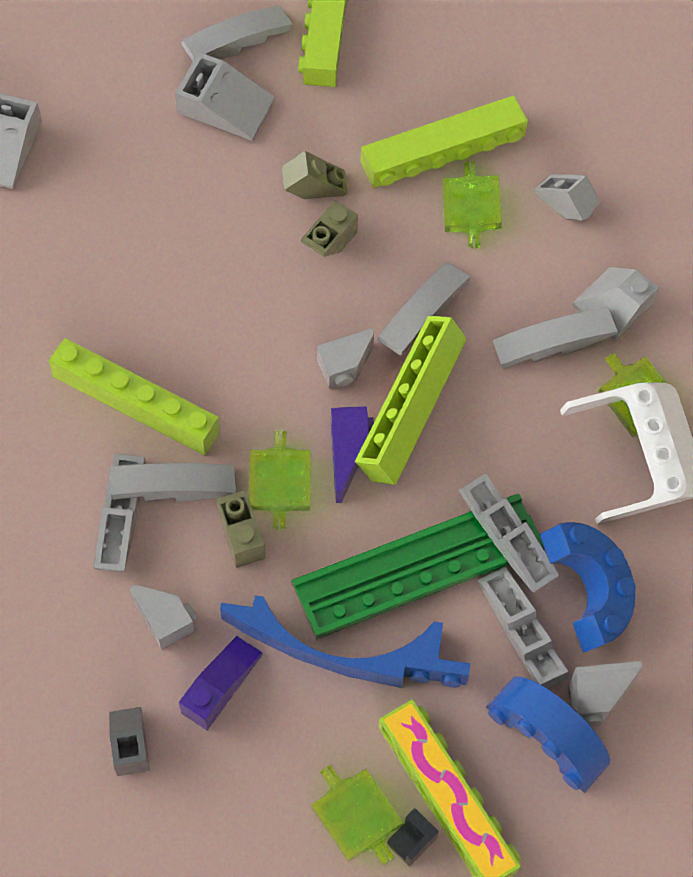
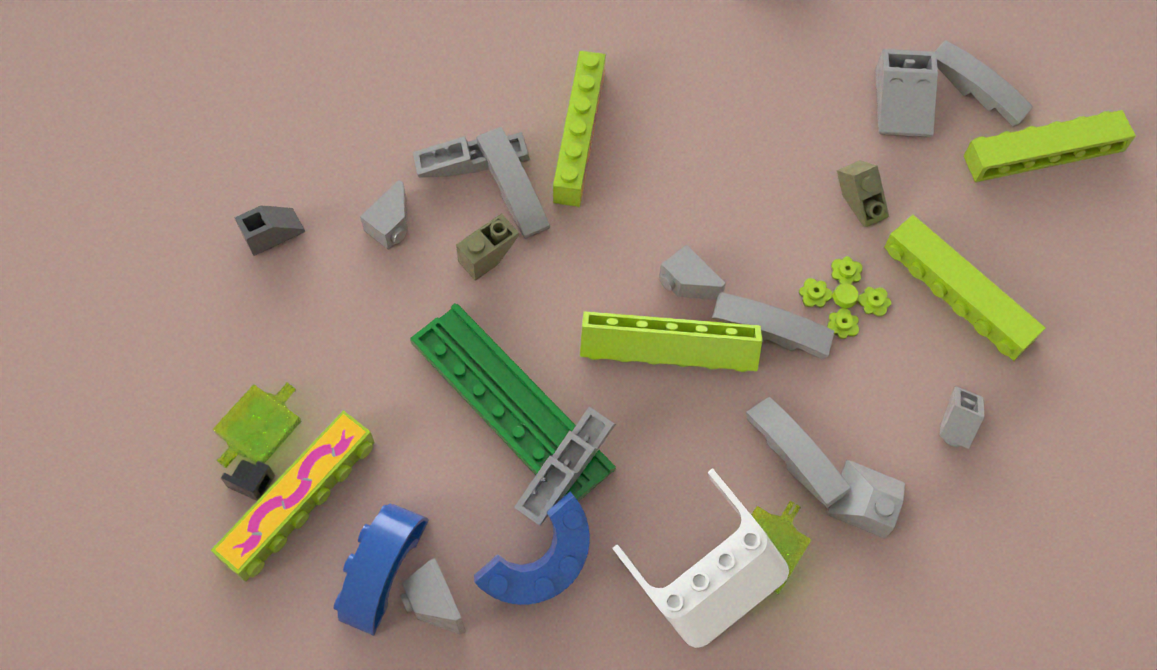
camera: 70 degrees right, 0 degrees up
(219, 682) = (343, 278): dark purple slope -> none
(279, 479) = (549, 263): clear neon green plate -> none
(332, 230) = (811, 221): olive slope -> none
(348, 432) = (612, 298): dark purple slope -> none
(412, 239) = (845, 296): none -> lime plant
(415, 660) = (413, 427): blue slope -> none
(472, 204) = (909, 334): clear neon green plate -> none
(522, 628) = (479, 514): light grey slope -> none

